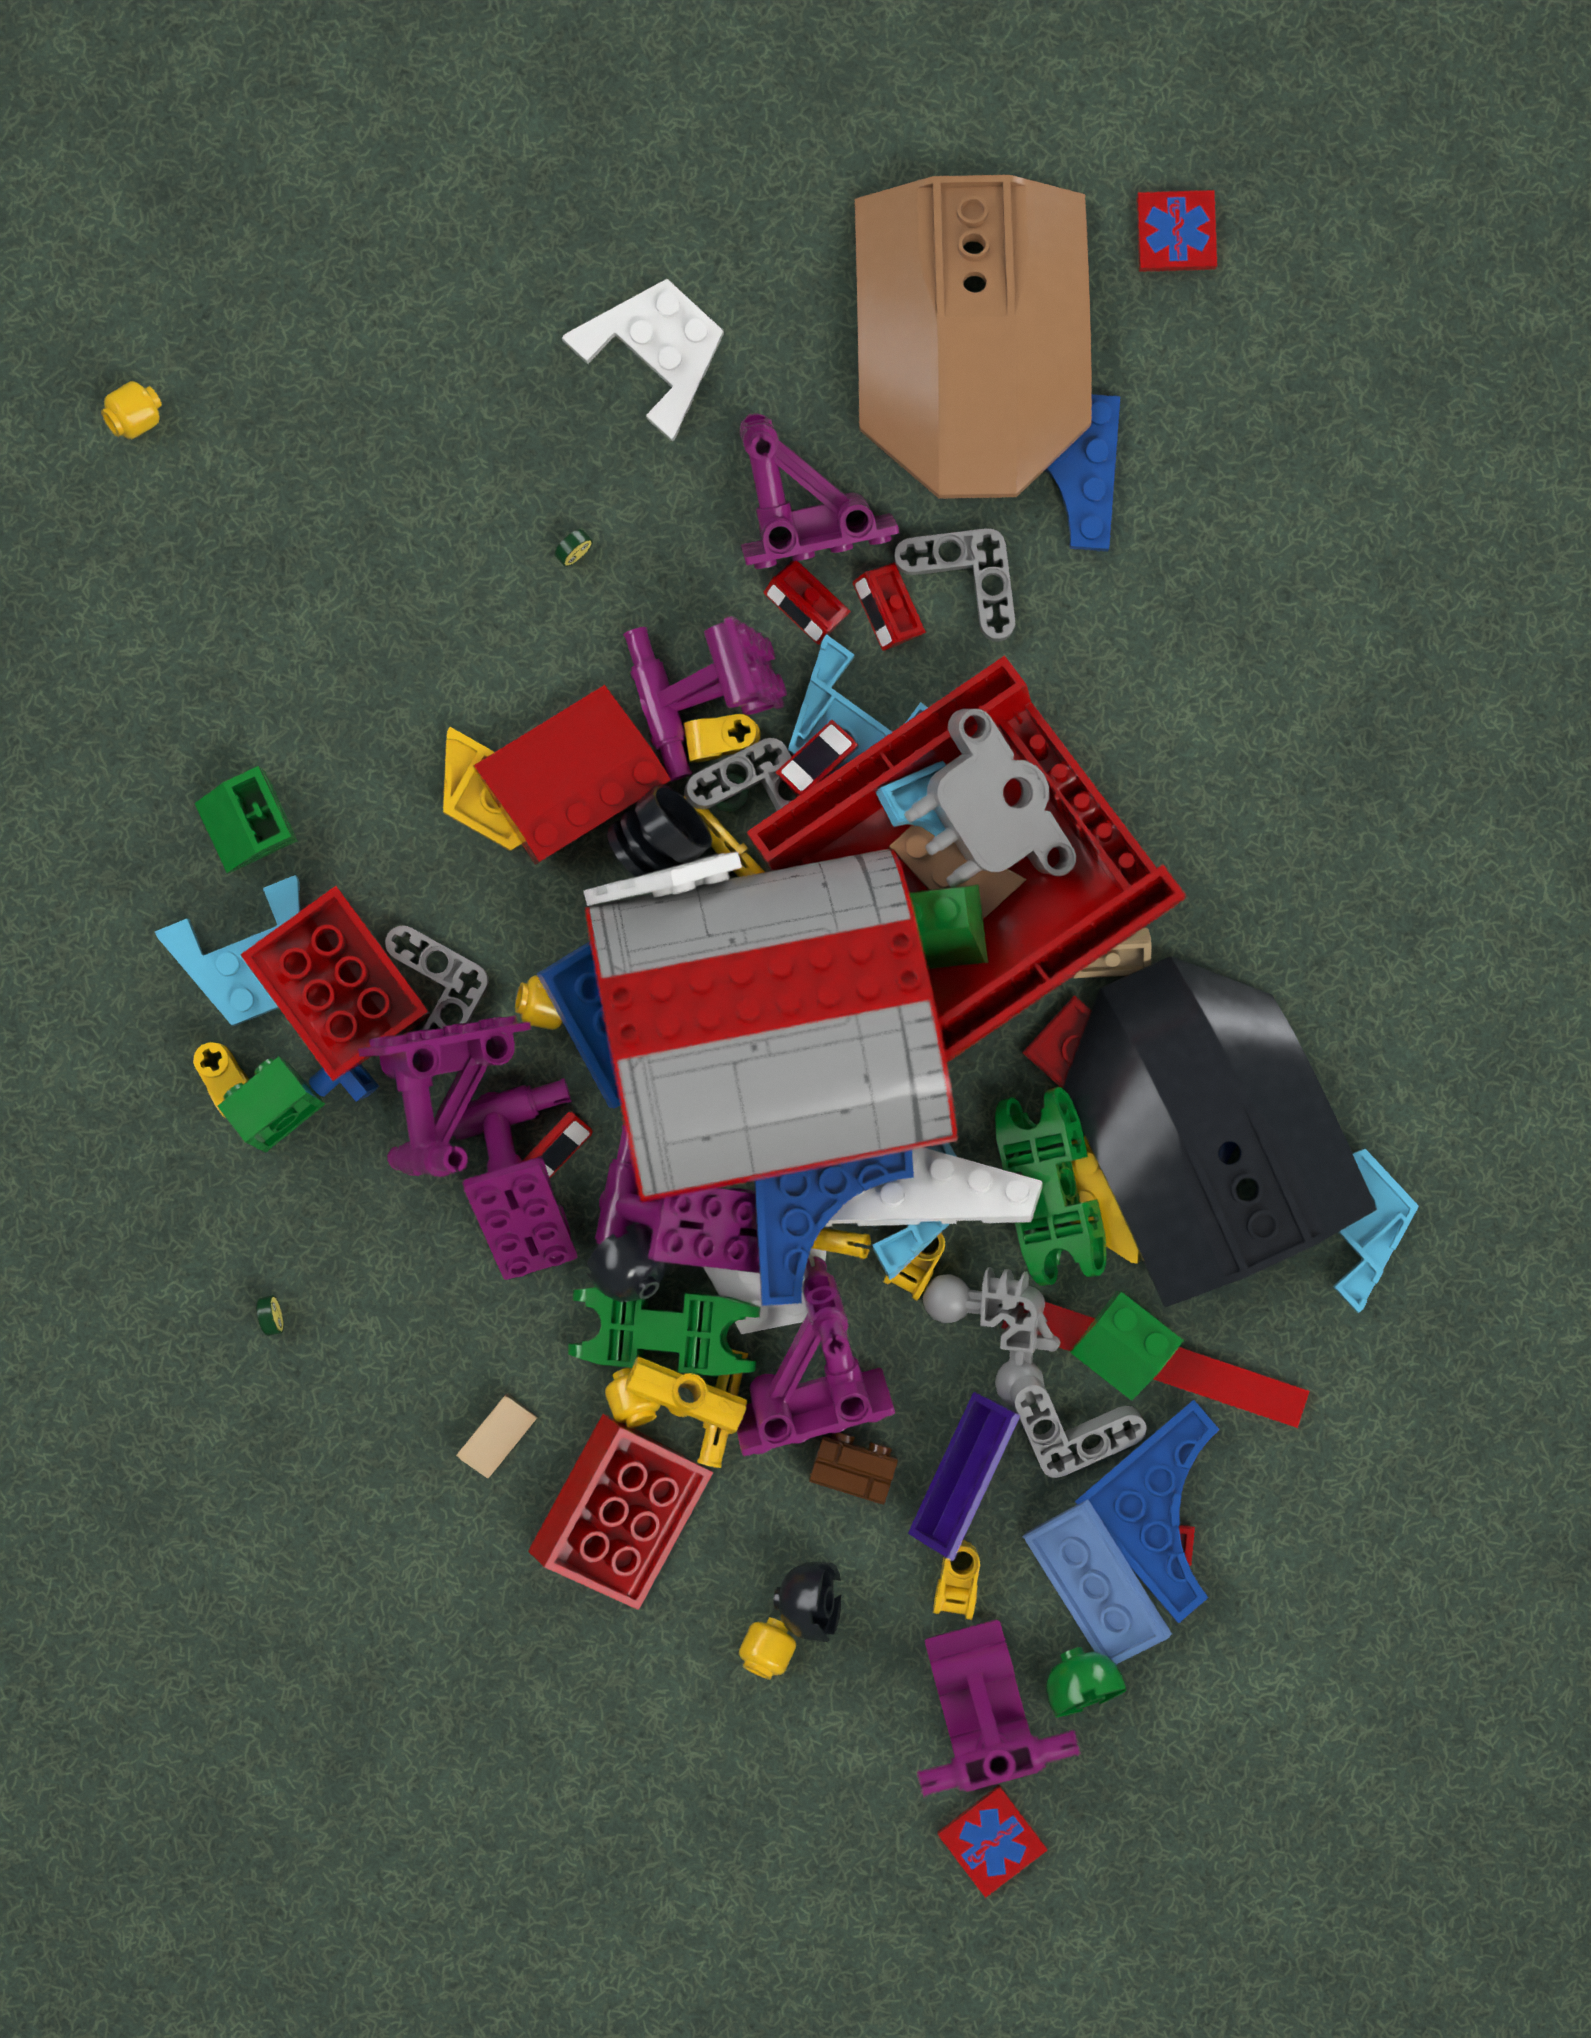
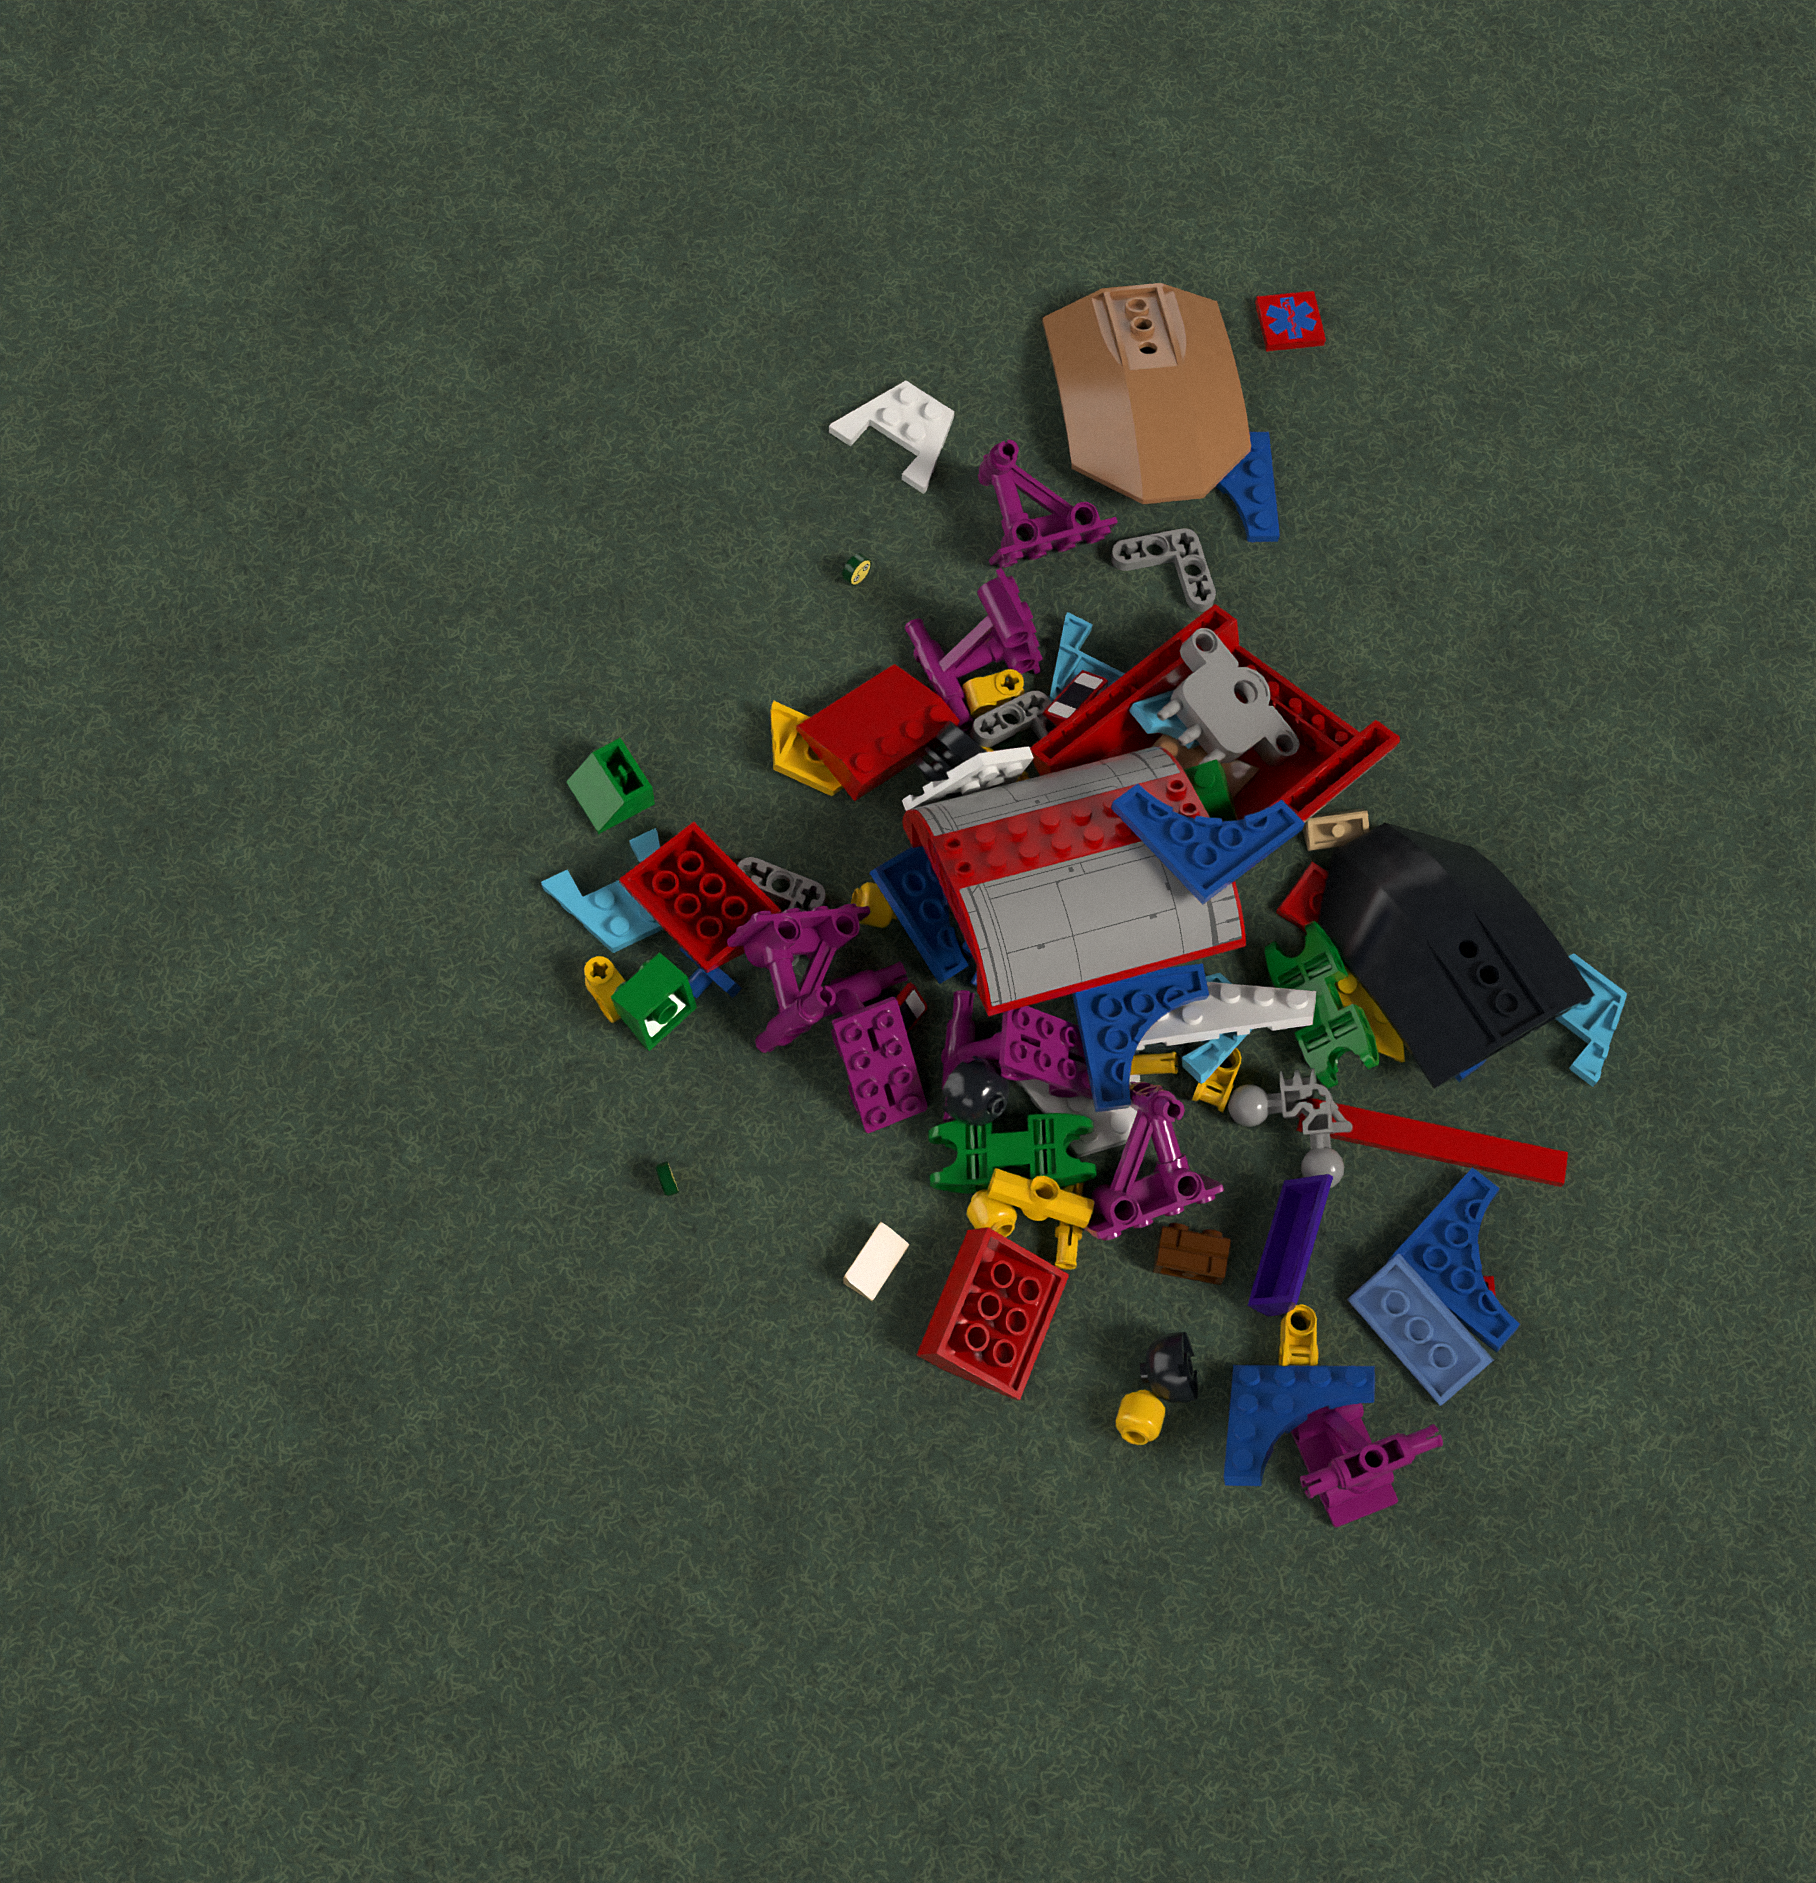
camera: 15 degrees left, 20 degrees down
(131, 410) = (492, 501): yellow head -> none
(806, 601) = (1047, 595): red slope -> none
(888, 606) = (1112, 592): red slope -> none
(915, 1653) = (1277, 1400): none -> blue plate
(916, 1043) = (1205, 850): none -> blue plate
(992, 1841) = (1367, 1571): red tile -> none
(1059, 1440) = (1363, 1209): light grey beam -> none
(1082, 1681) = (1425, 1406): green cylinder -> none
(1126, 1345) = (1408, 1124): green slope -> none

